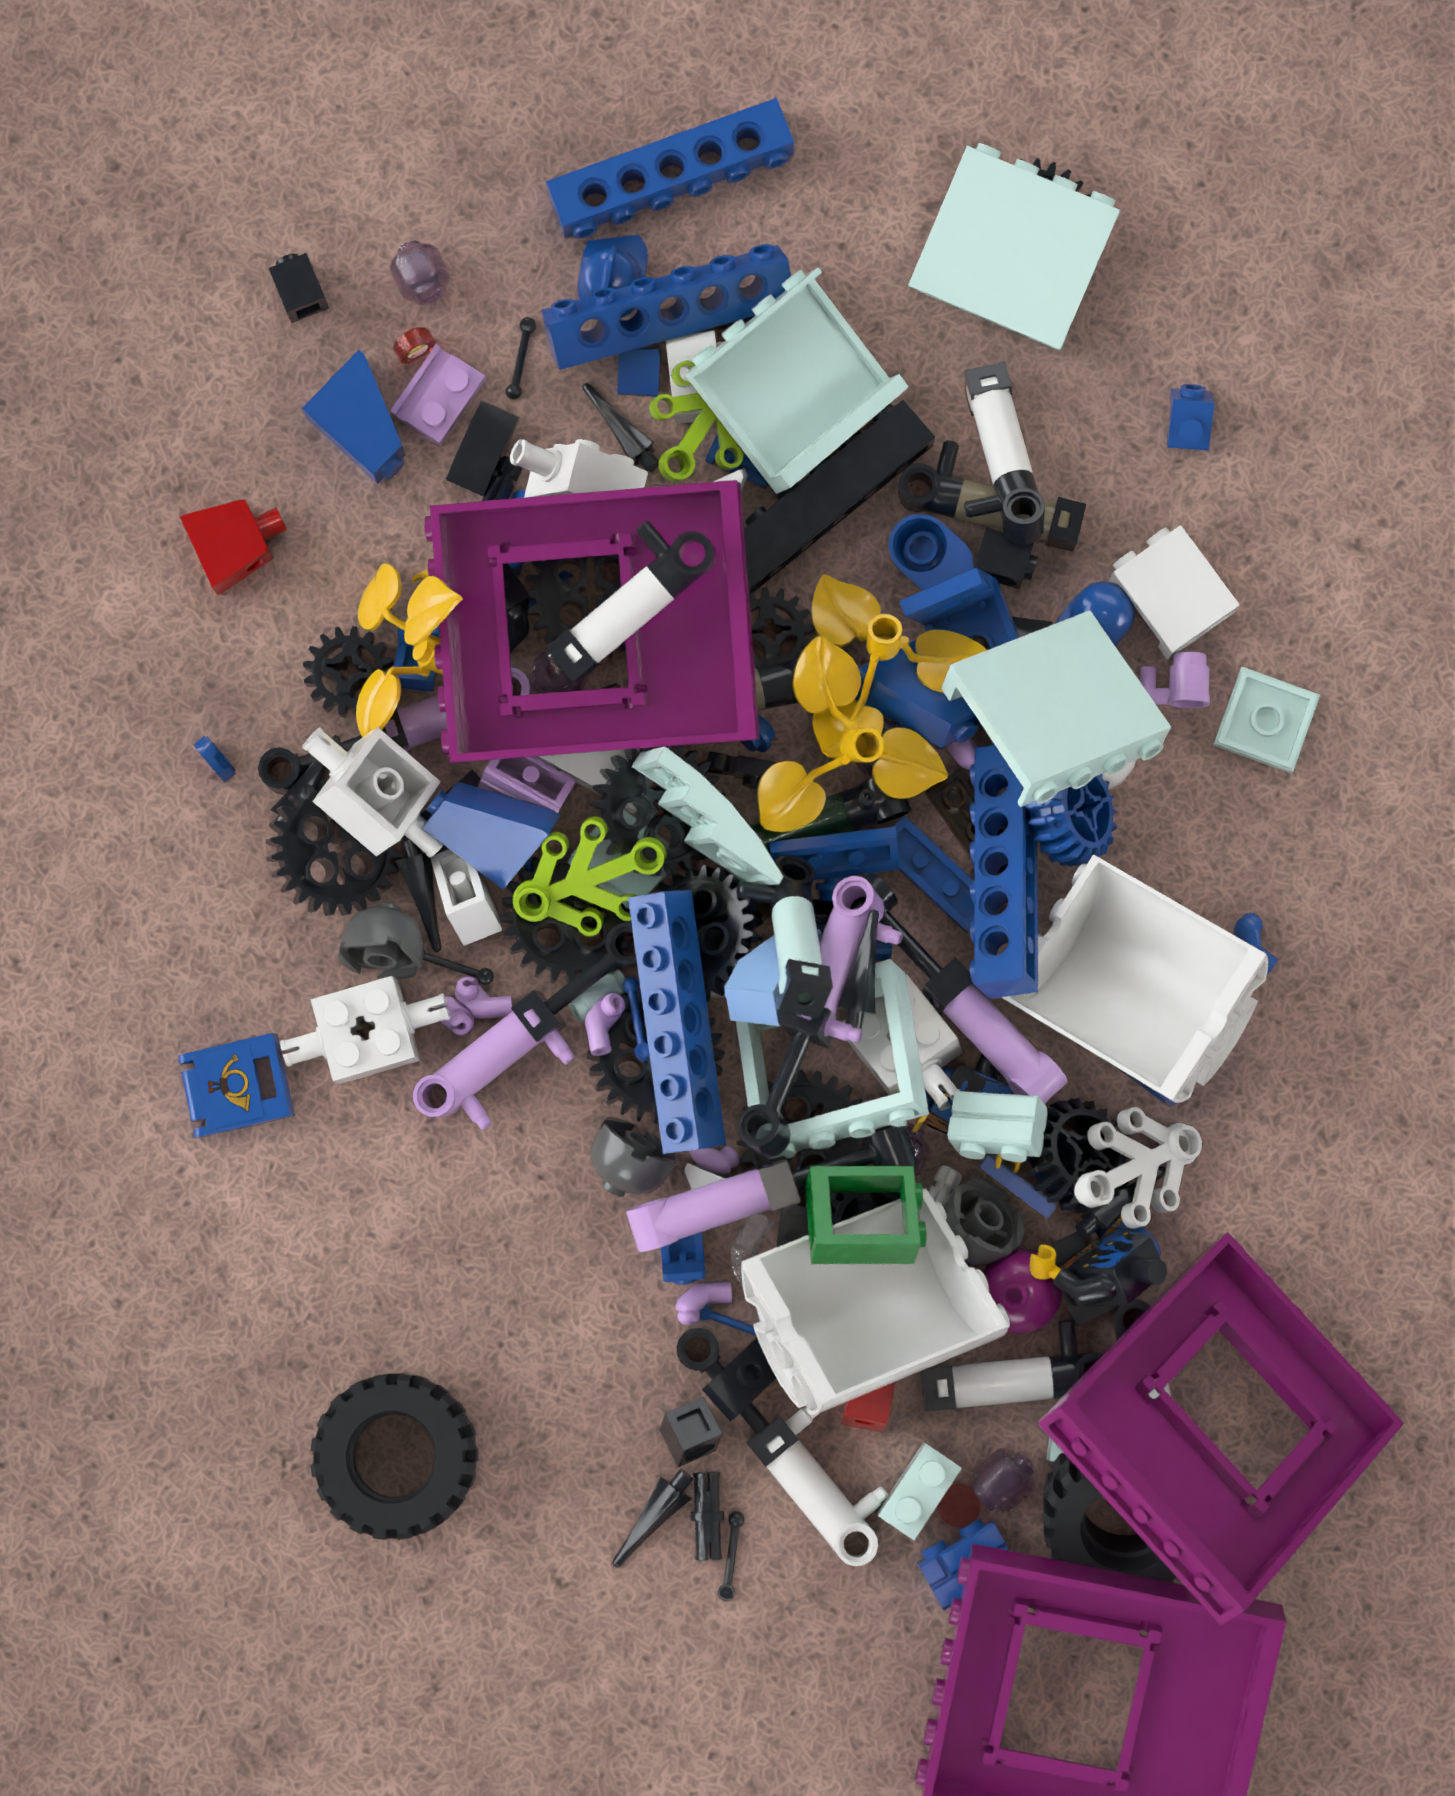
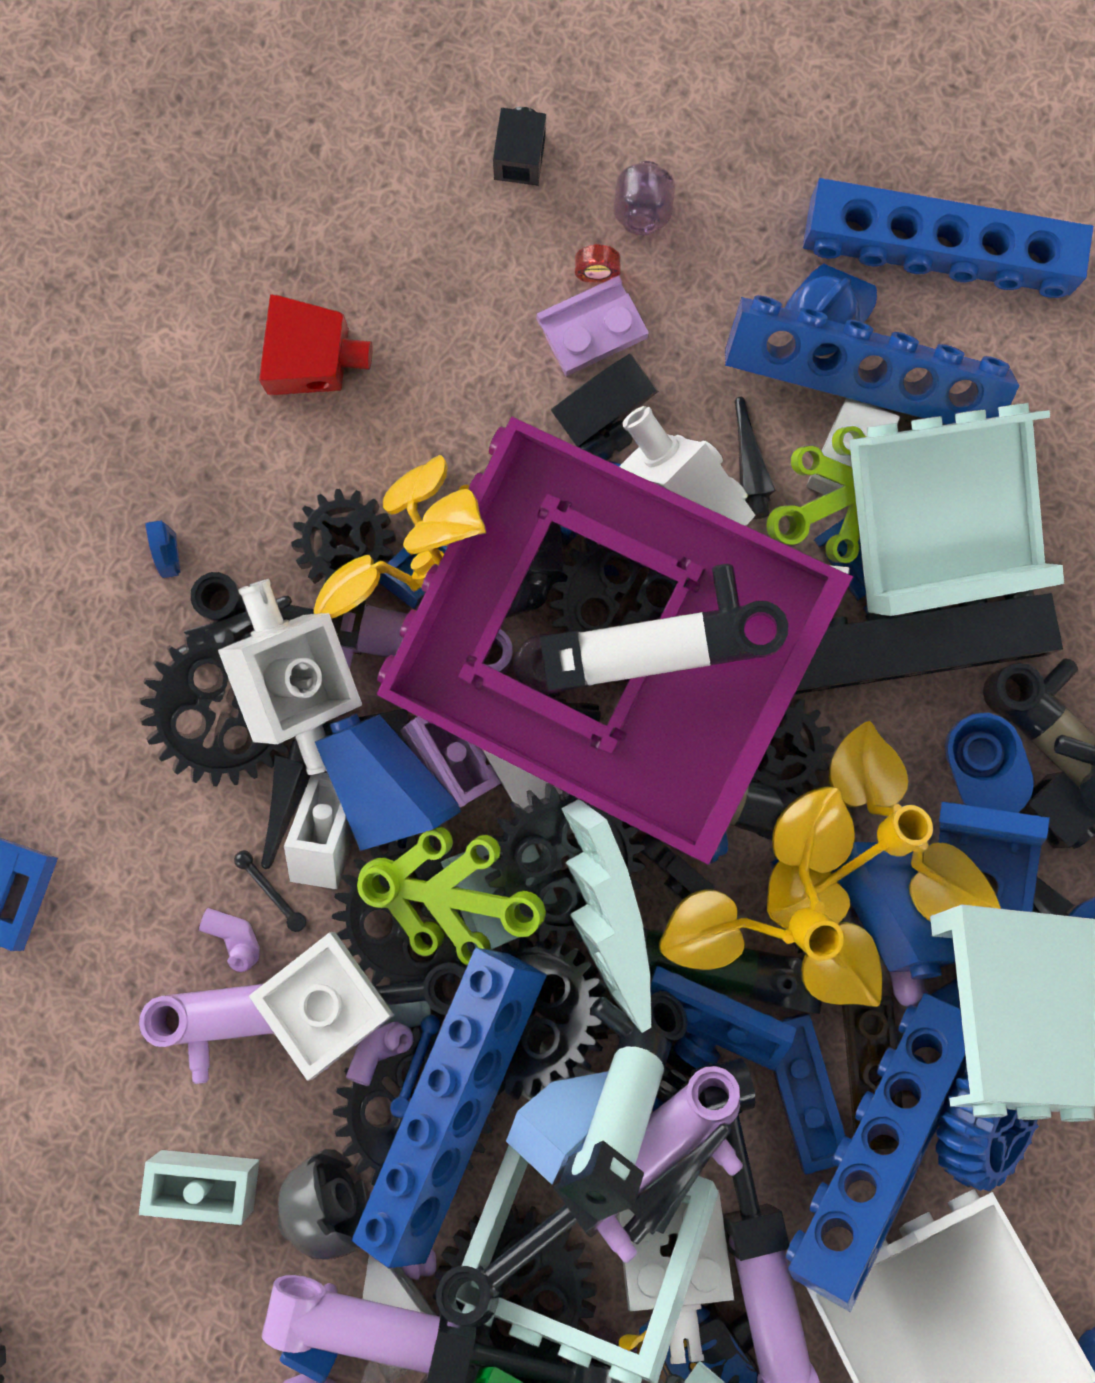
camera: 25 degrees right, 0 degrees up
(342, 1014) = (117, 930): white brick -> none
(357, 420) = (500, 302): blue slope -> none
(382, 940) = (212, 828): dark grey cylinder -> none
(478, 1002) = (272, 941): lavender arm -> none
(527, 327) = (716, 312): black hinge -> none
(532, 1197) = (199, 1187): none -> light aqua brick
(543, 1007) = (321, 1005): none -> white plate
(639, 372) = (800, 415): blue slope -> none

